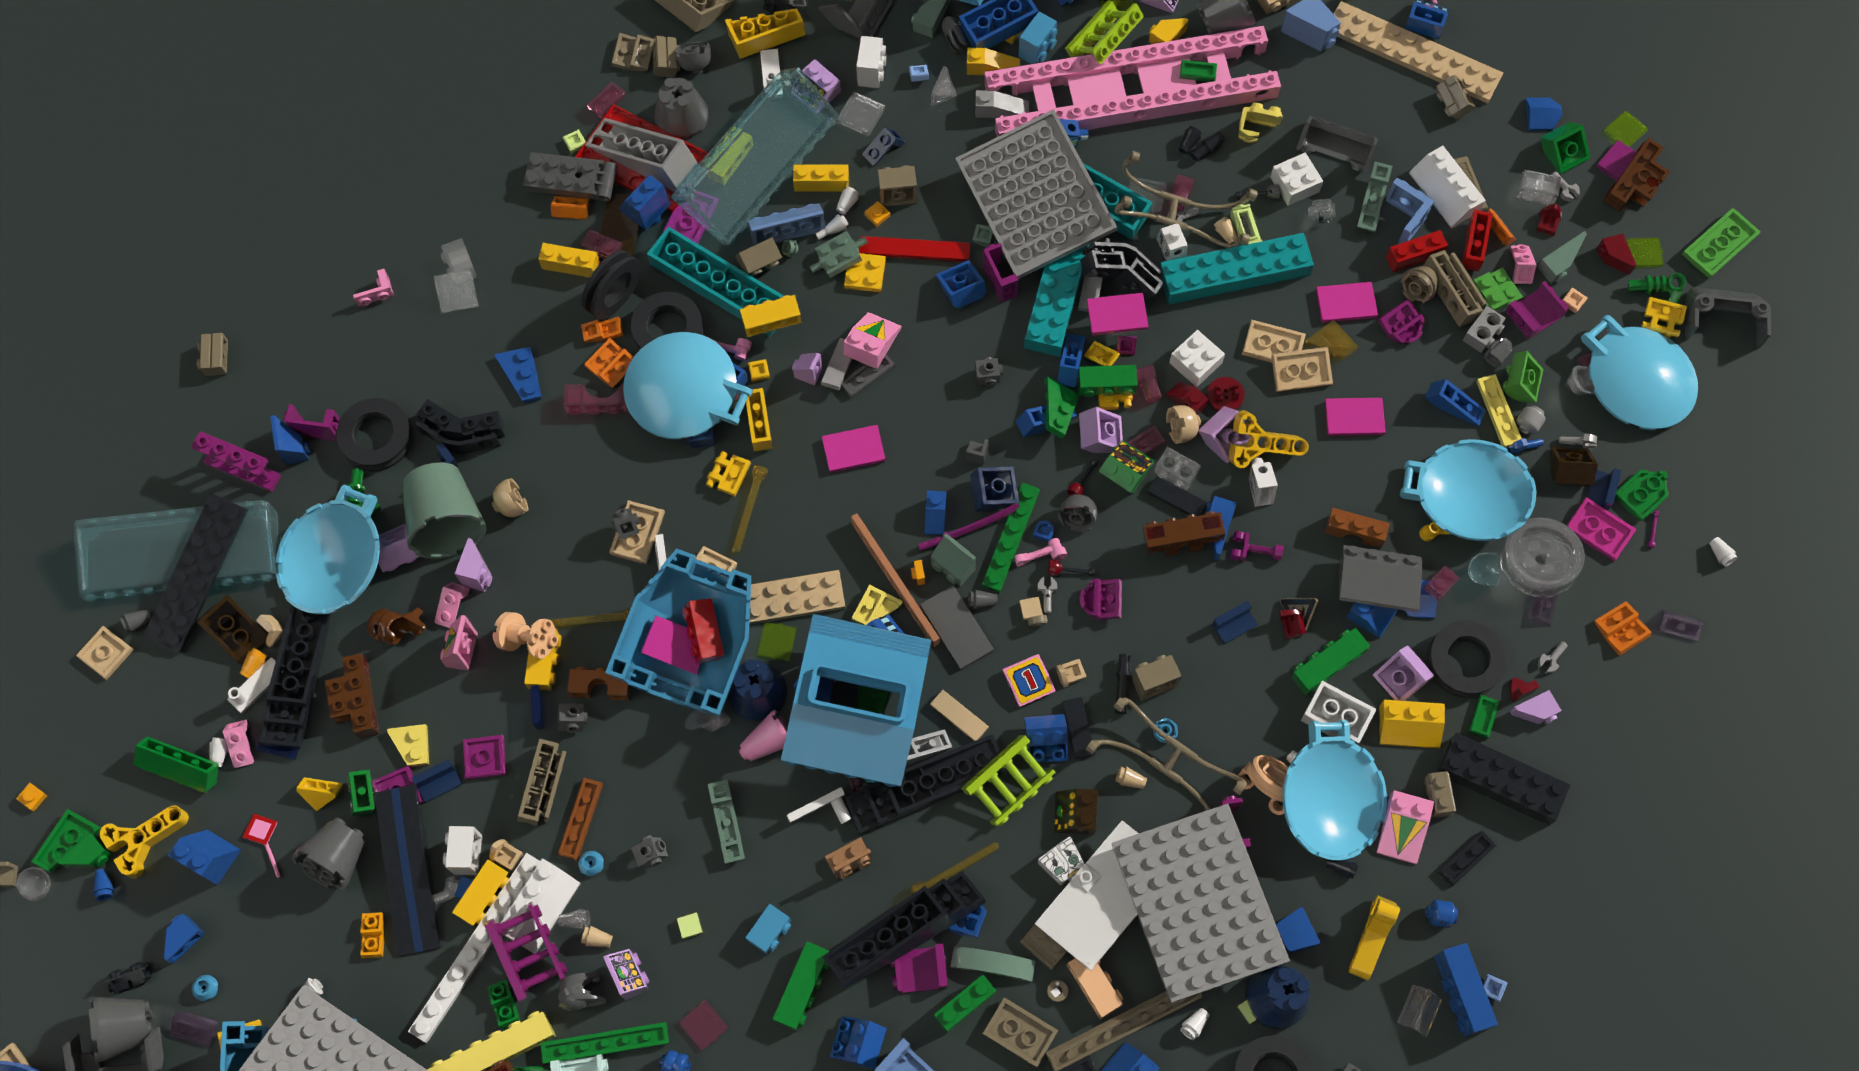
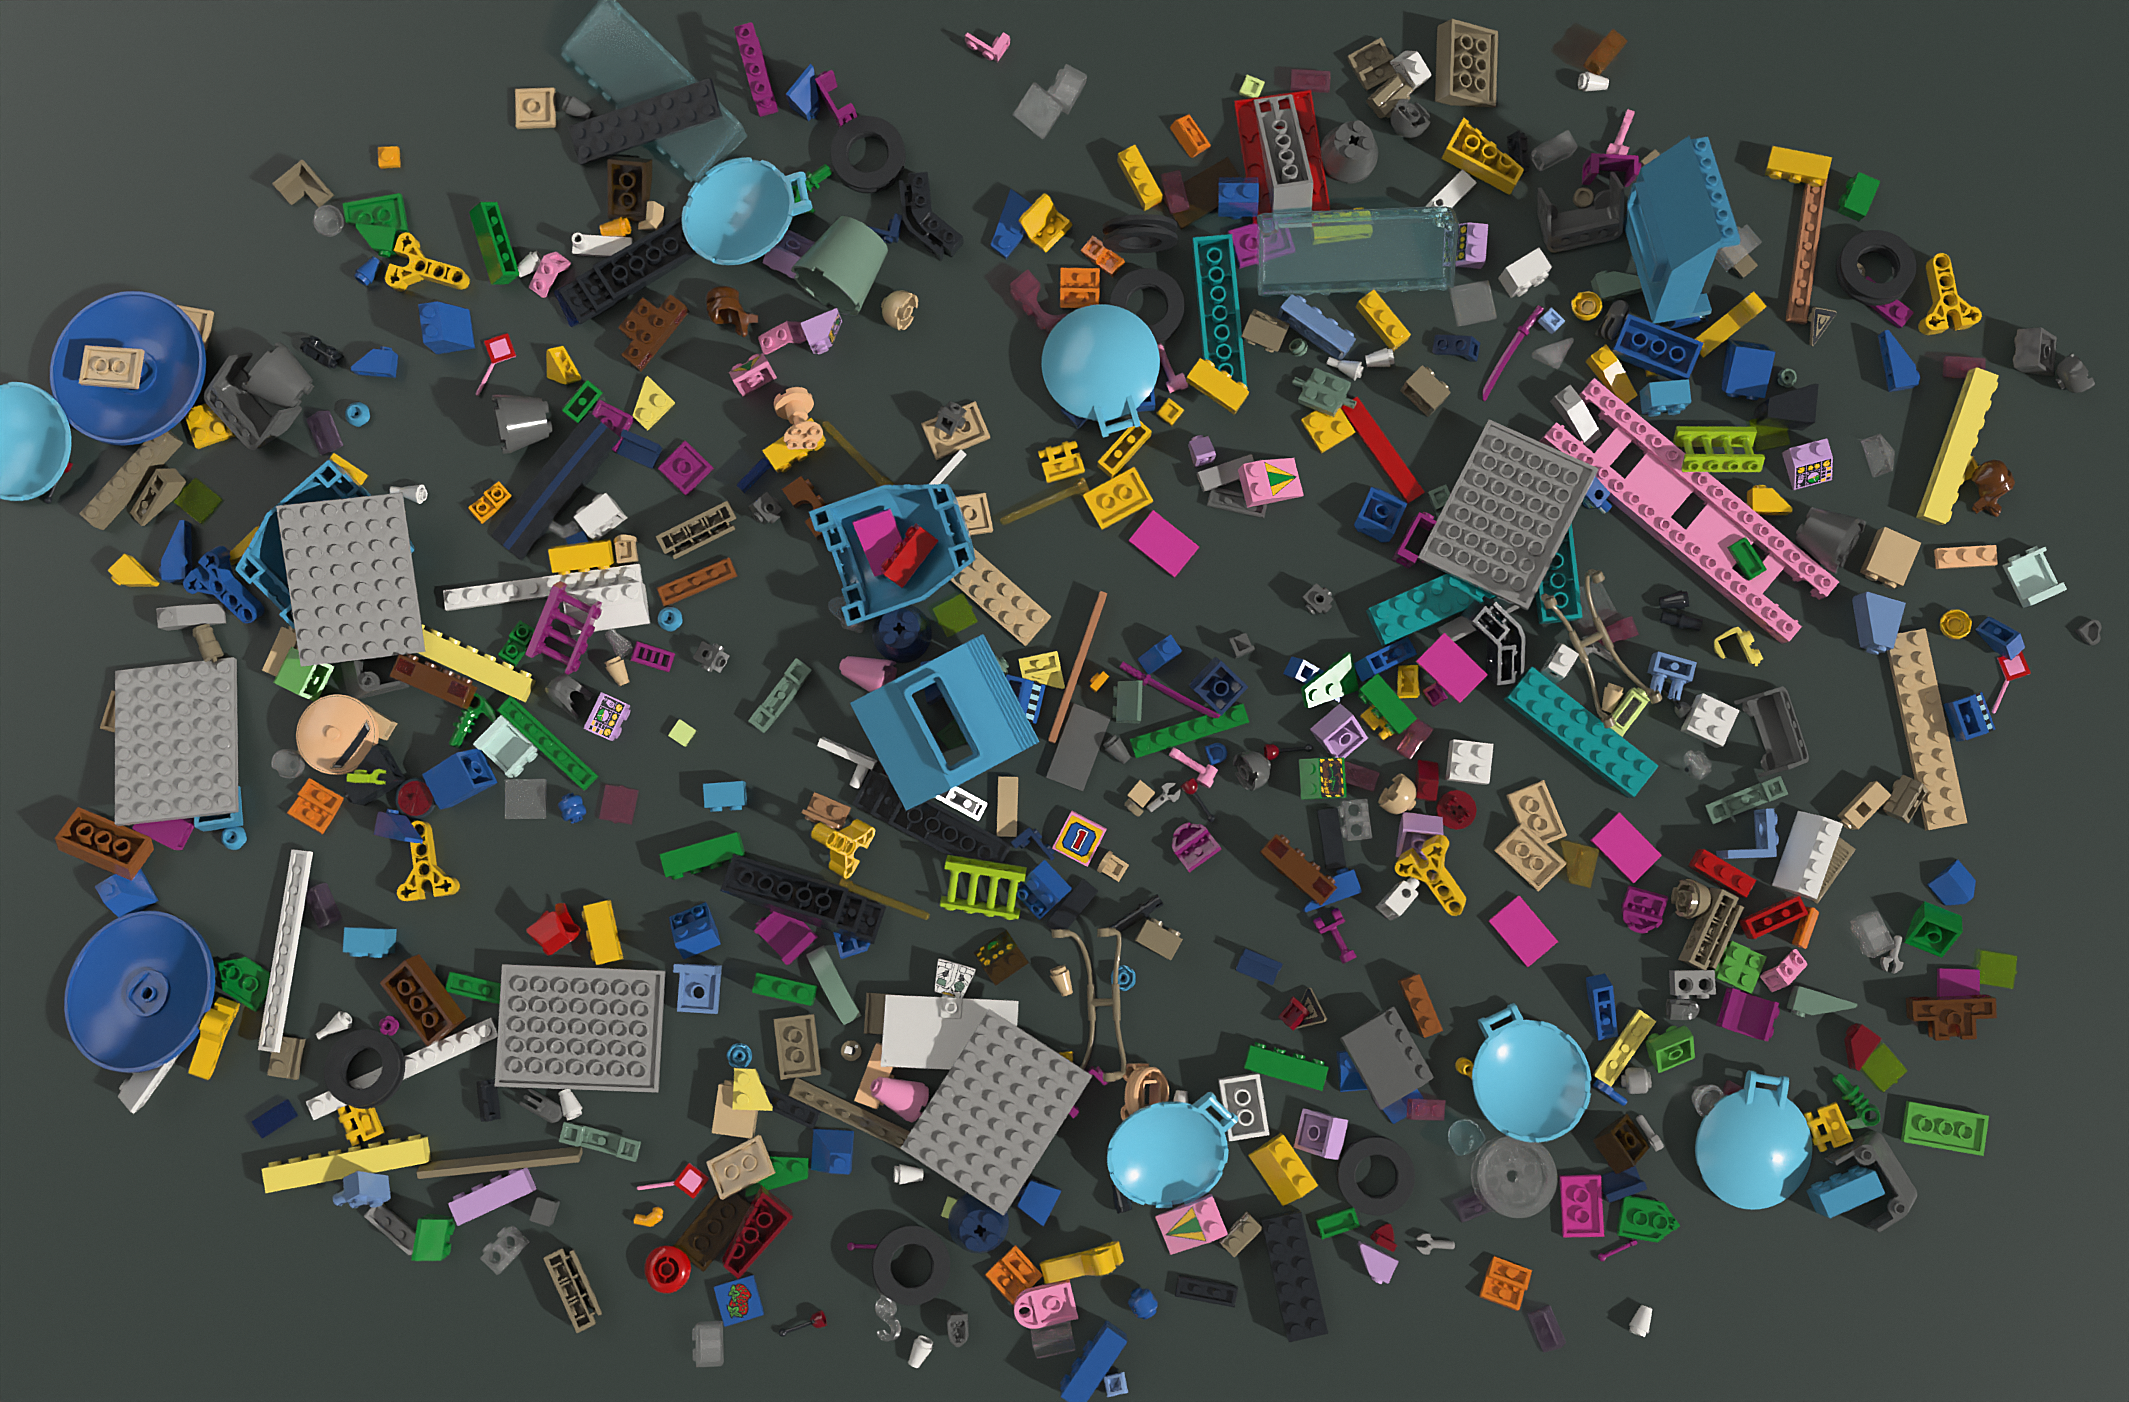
camera: 50 degrees right, 15 degrees up
(542, 350) = (1044, 223): none -> yellow bracket
(561, 176) = (1211, 104): dark grey hinge -> none
(590, 905) = (634, 658): none -> magenta slope
(659, 25) = (1411, 68): none -> white torso
(791, 454) = (1117, 498): none -> yellow plate
(877, 214) = (1389, 393): light orange plate -> none
(885, 860) = (843, 844): none -> yellow beam
(910, 97) = (1522, 331): none -> magenta sword
(928, 43) = (1586, 305): none -> yellow hair
(1000, 711) = (1023, 840): none -> dark blue bracket
(1129, 973) = (901, 1096): none -> bright pink cone
(1238, 174) = (1670, 667): none -> medium blue brick
(1342, 1002) = (1013, 1274): none -> orange slope
(1387, 991) = (1047, 1305): none -> bright pink tile
(1439, 126) = (1863, 806): none -> tan brick
(1549, 219) = (1847, 964): dark red tile -> none
(1574, 300) = (1784, 1038): light nougat tile -> none
(1722, 338) = (1845, 1191): none -> dark azure brick

